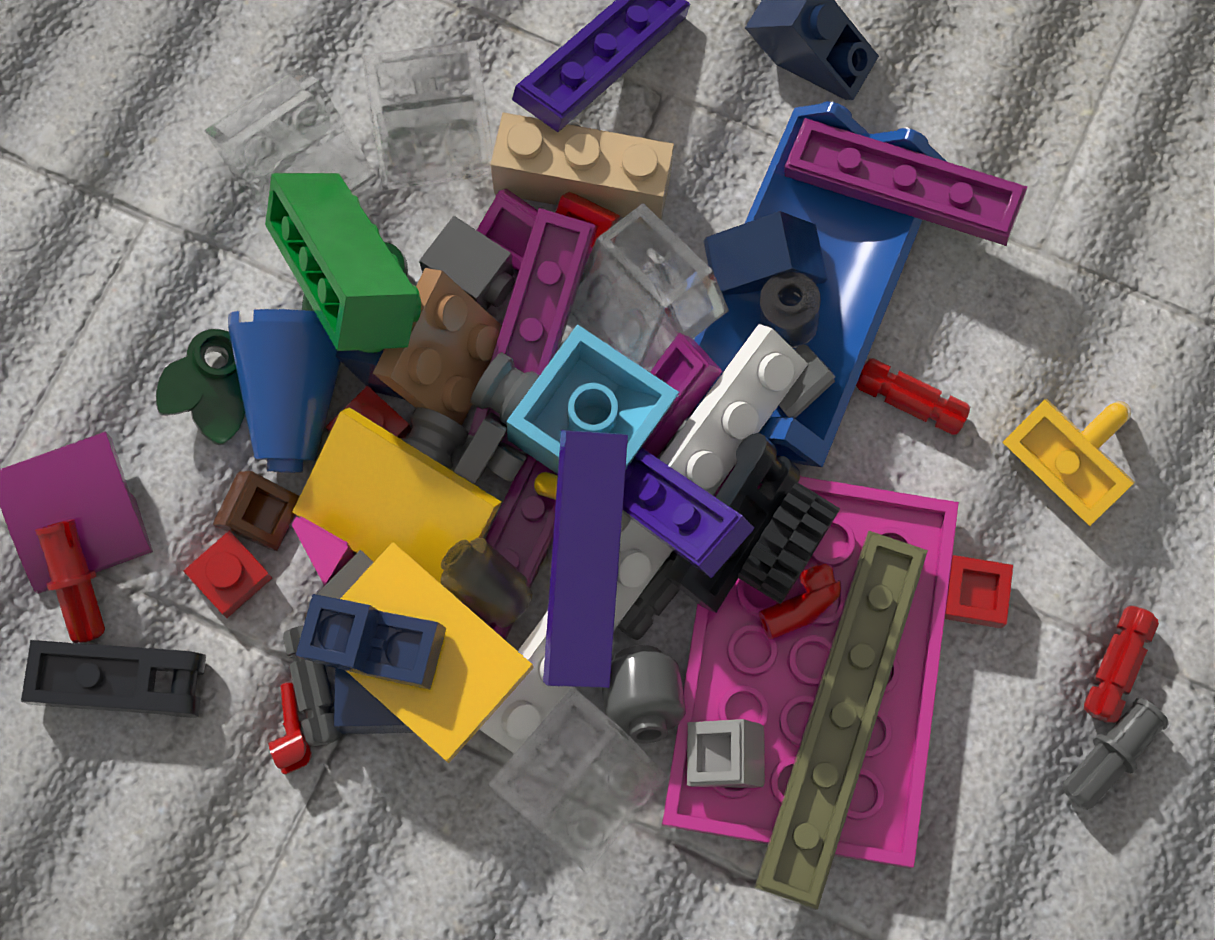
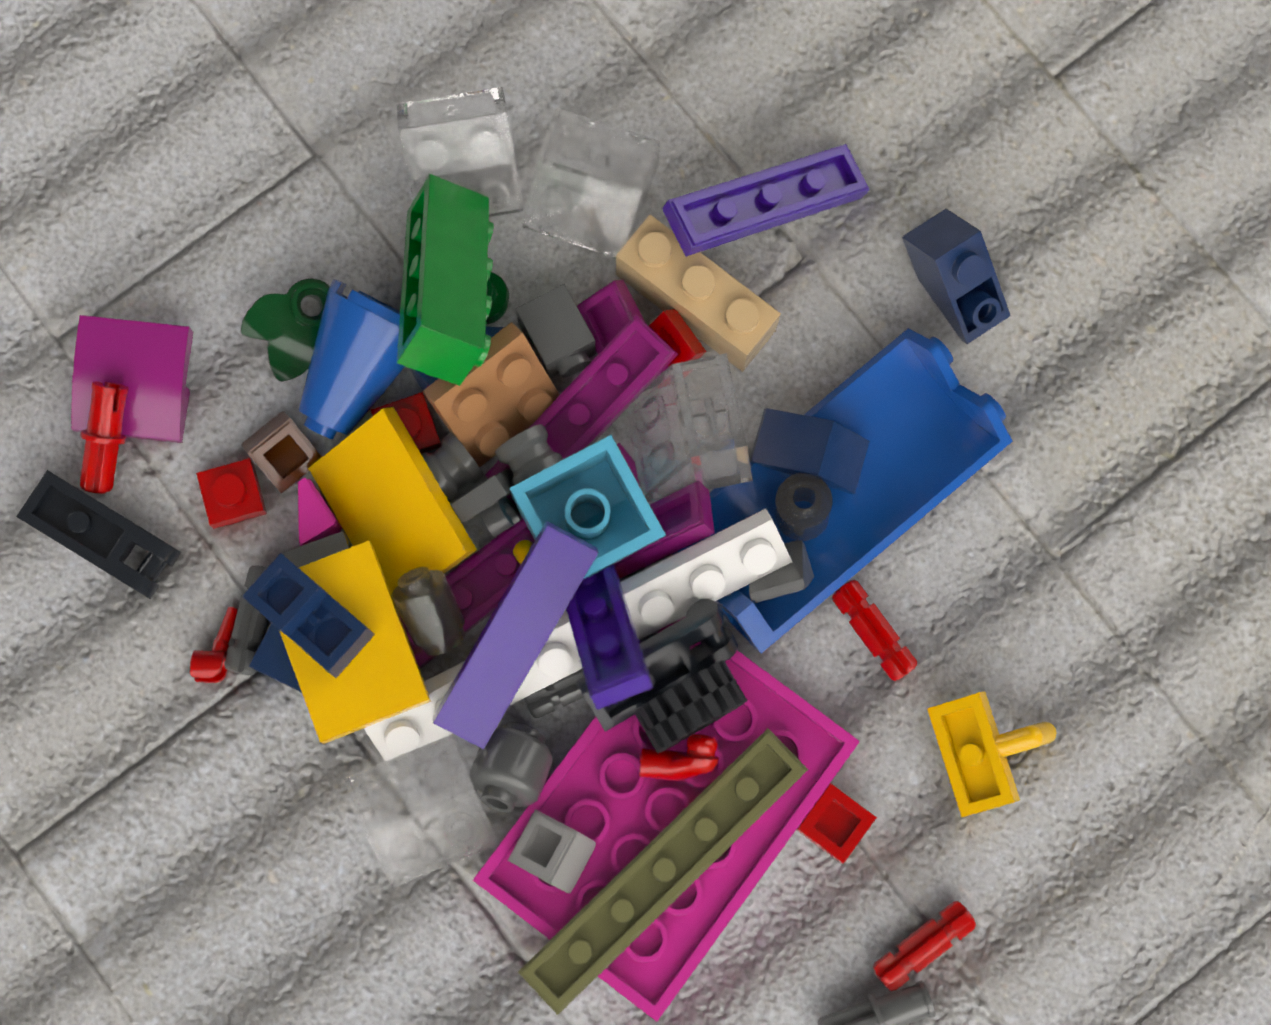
camera: 25 degrees right, 5 degrees up
(905, 181) = (964, 443): magenta tile -> none

